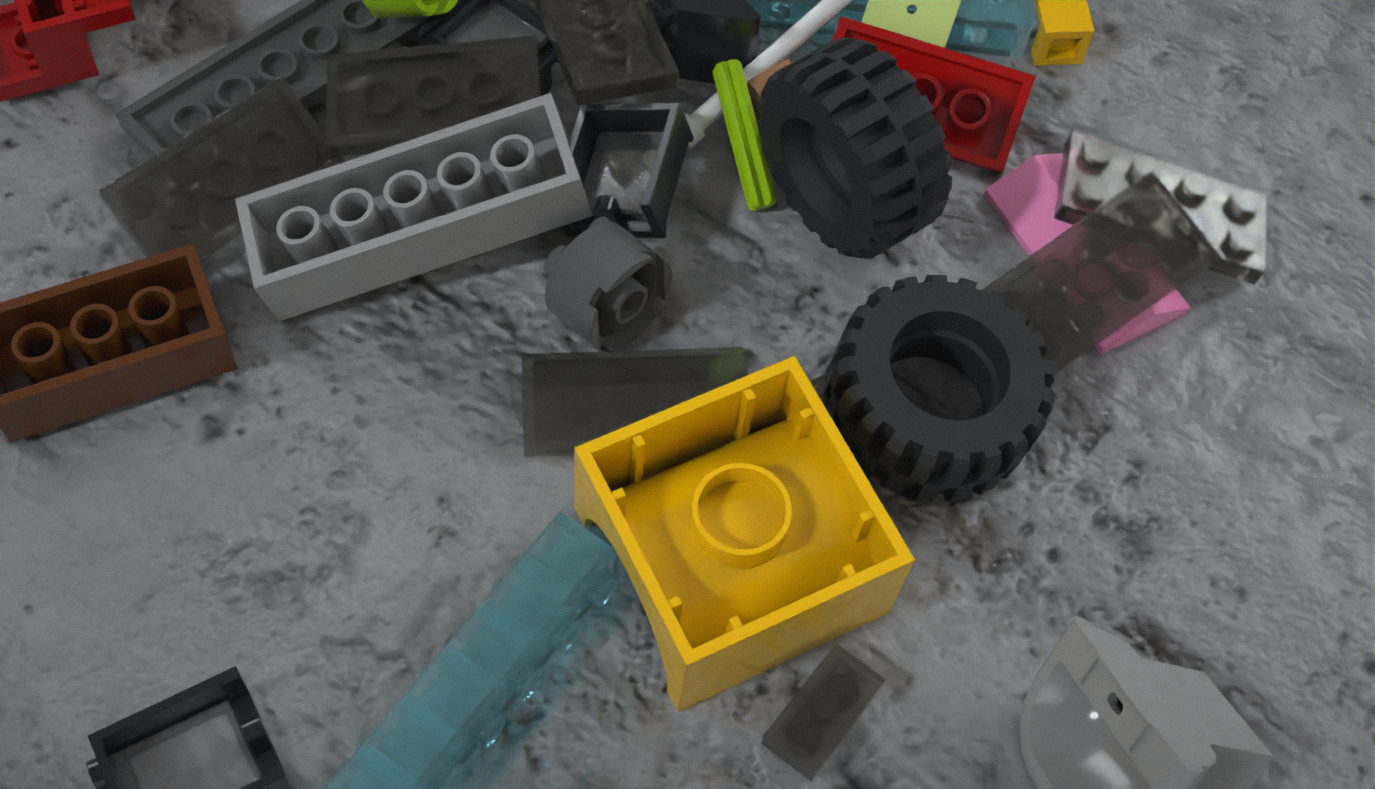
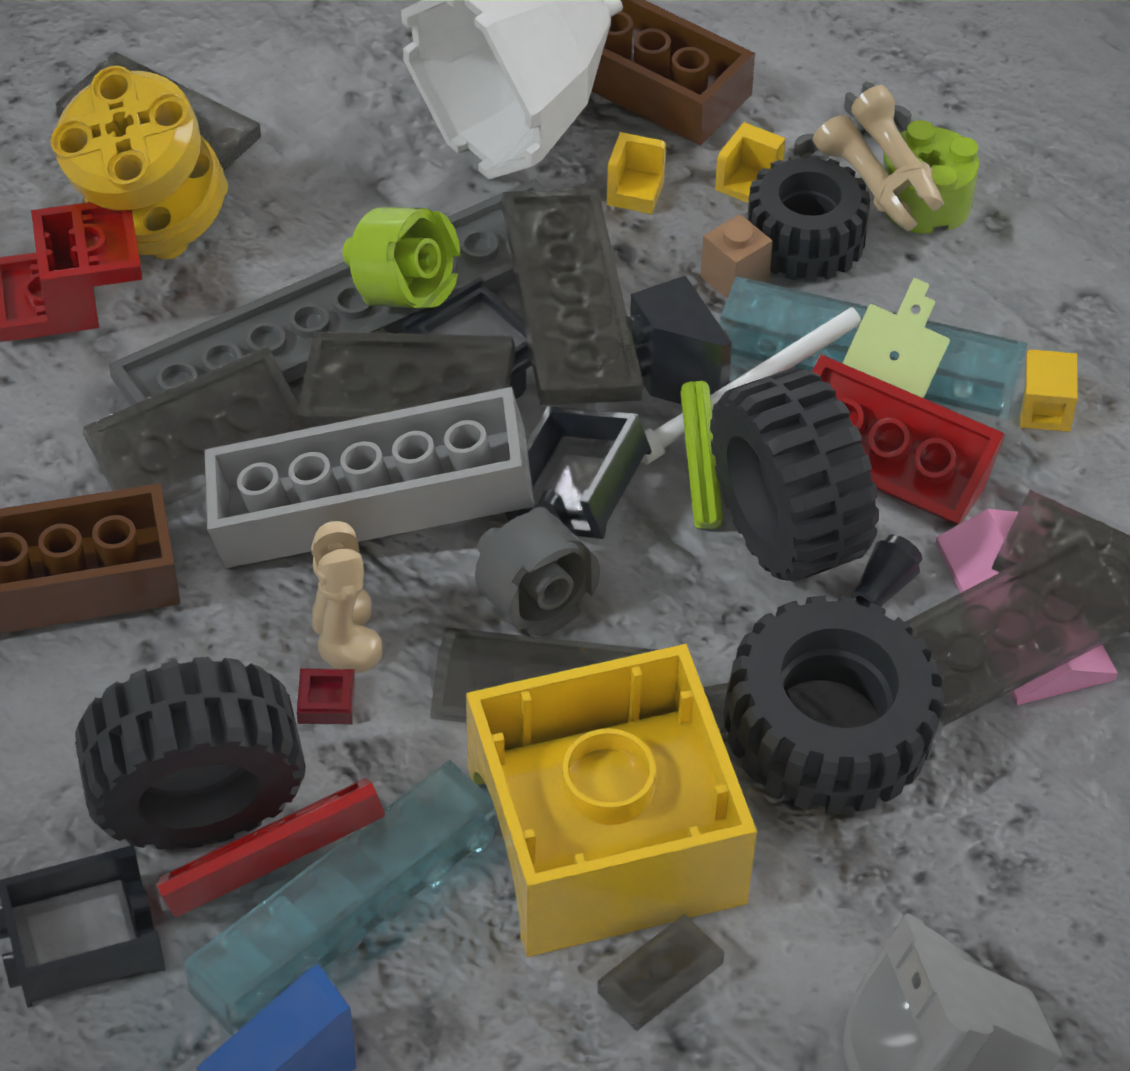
camera: 15 degrees right, 10 degrees down
(278, 557) = (189, 753): none -> black tyre
(382, 641) = (270, 847): none -> red slope
(411, 450) = (326, 696): none -> dark red tile
(412, 347) = (342, 602): none -> tan piece
(950, 235) = (888, 570): none -> black cone

